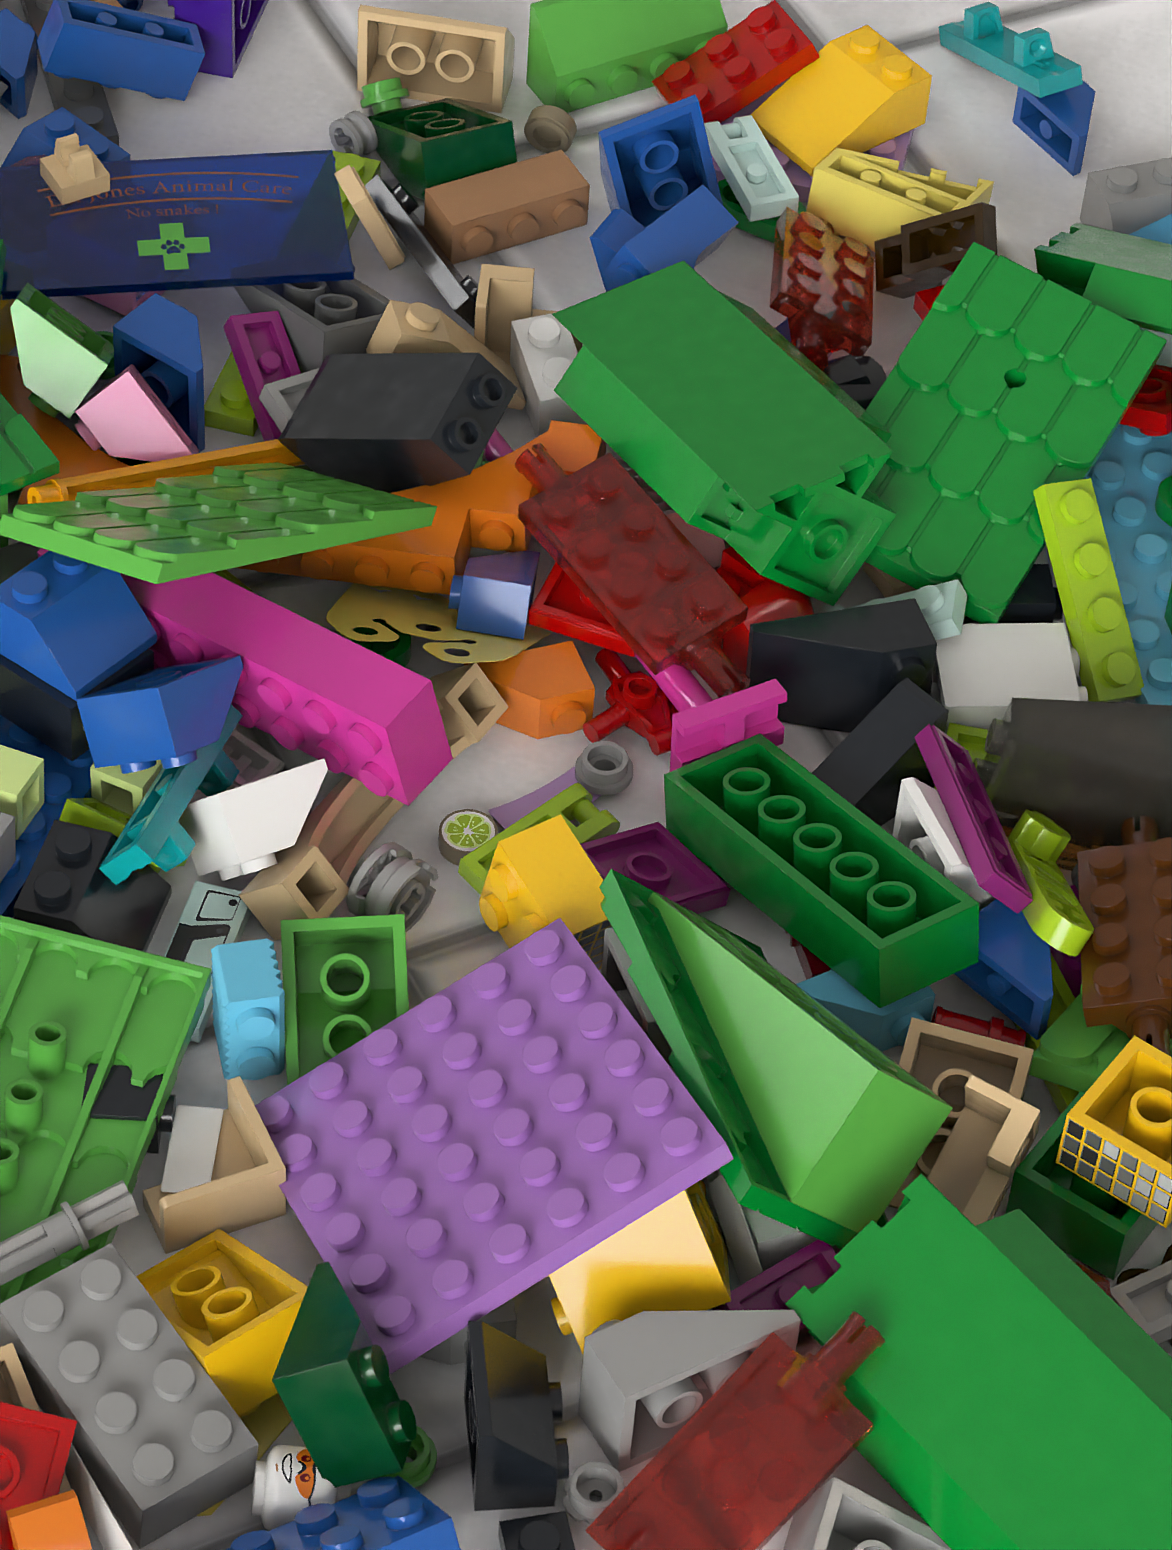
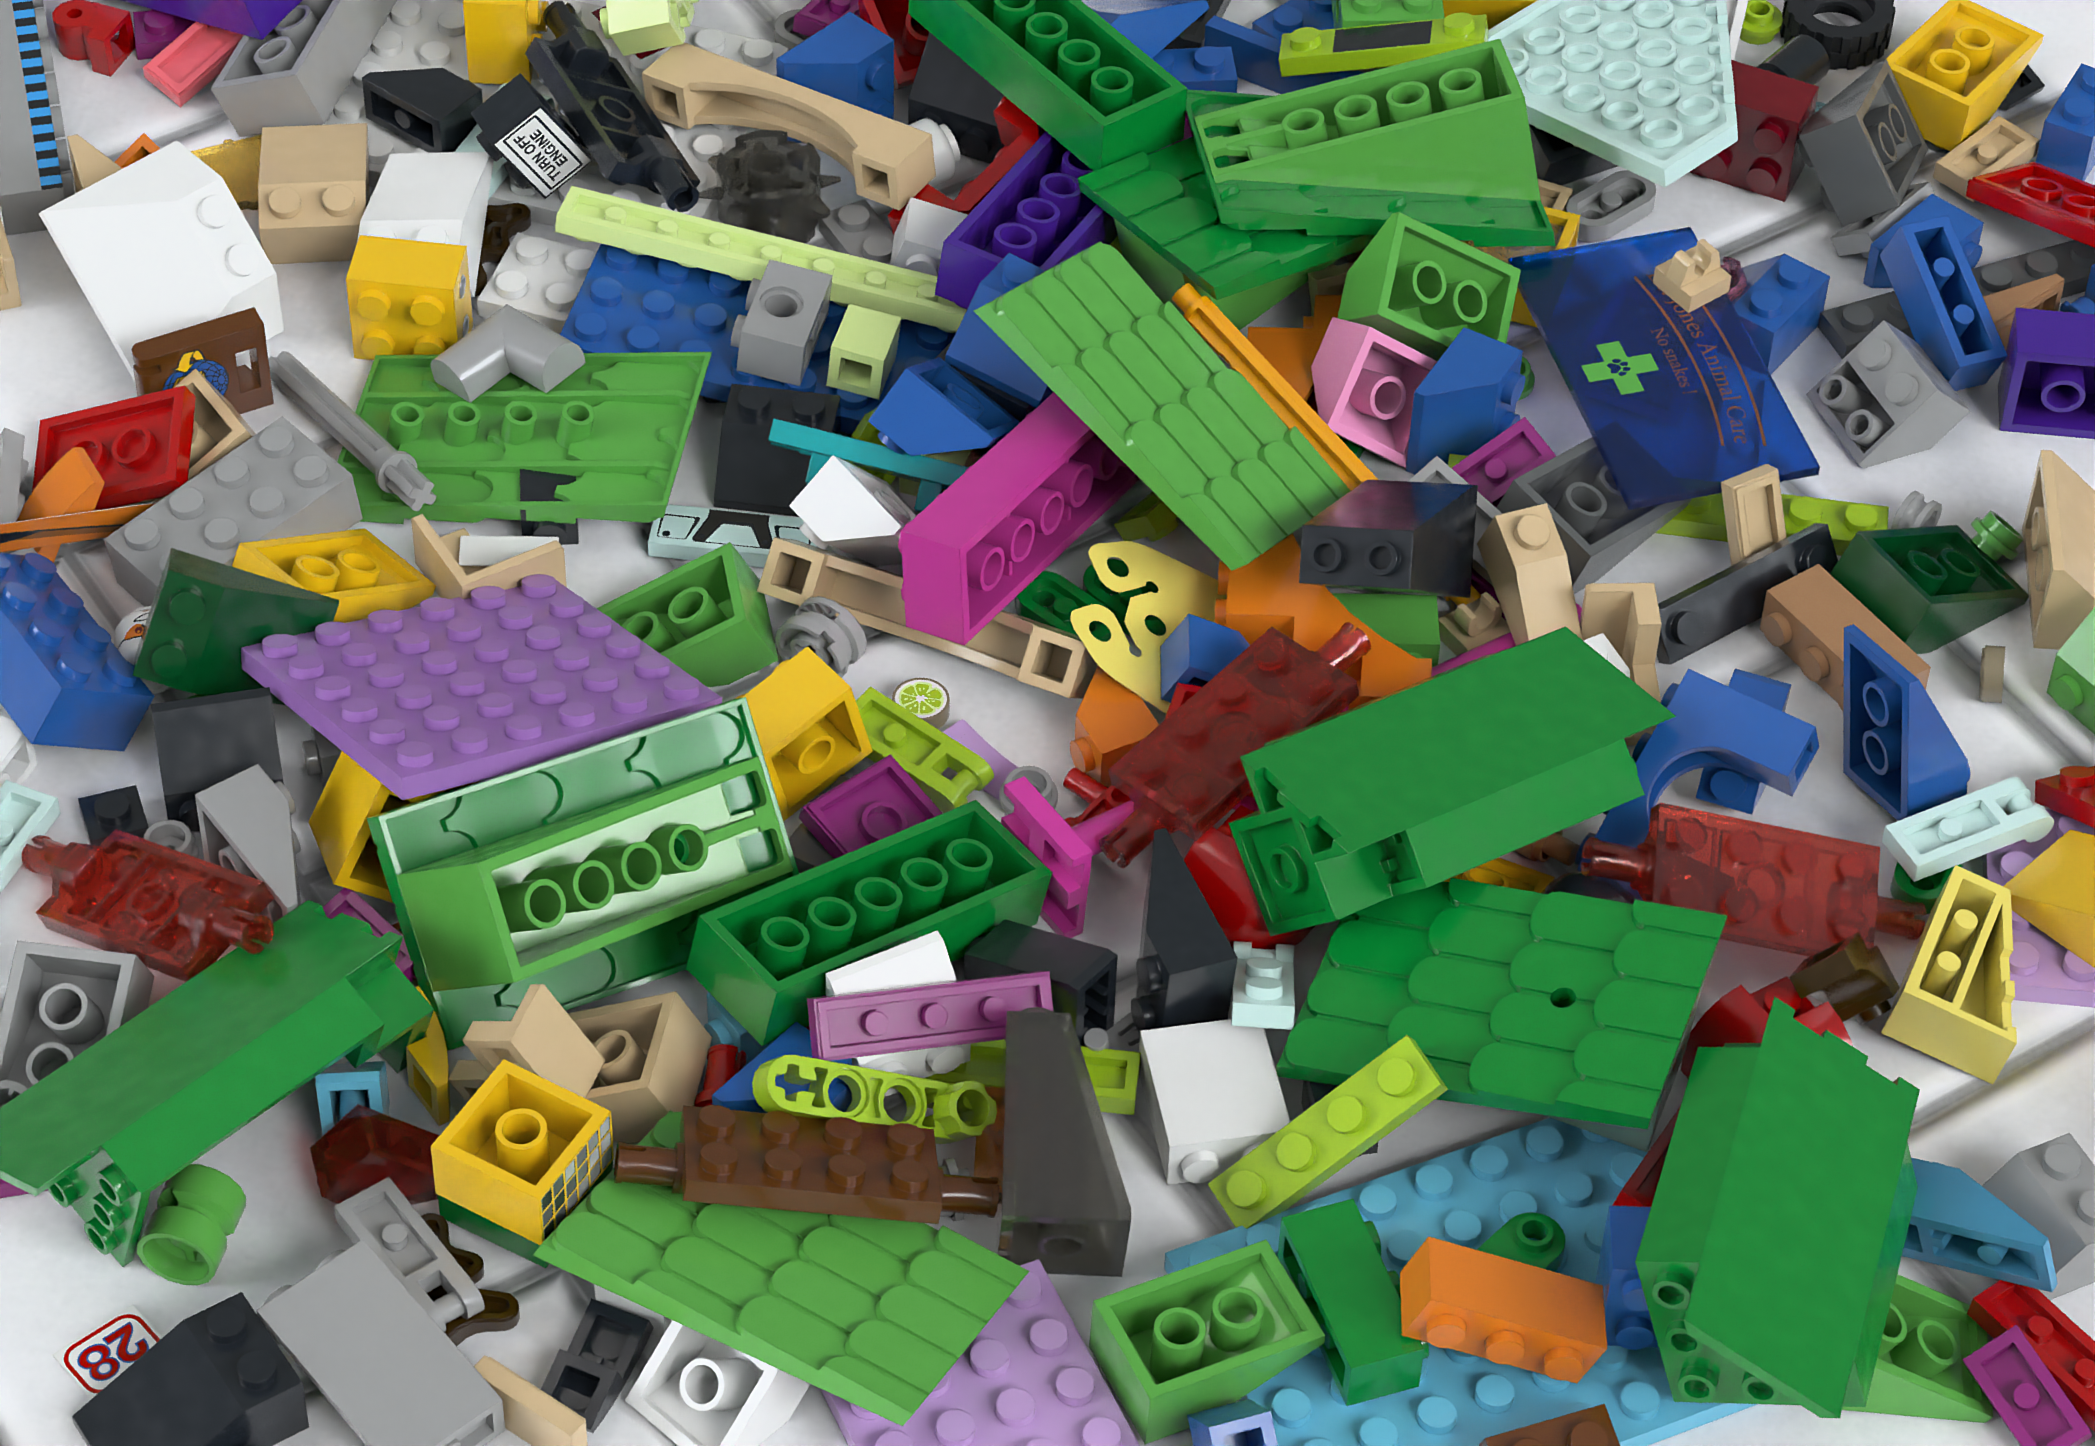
camera: 85 degrees right, 0 degrees up
(201, 113) = (1887, 399): none -> light grey slope
(248, 1009) = (641, 540): medium azure brick -> none

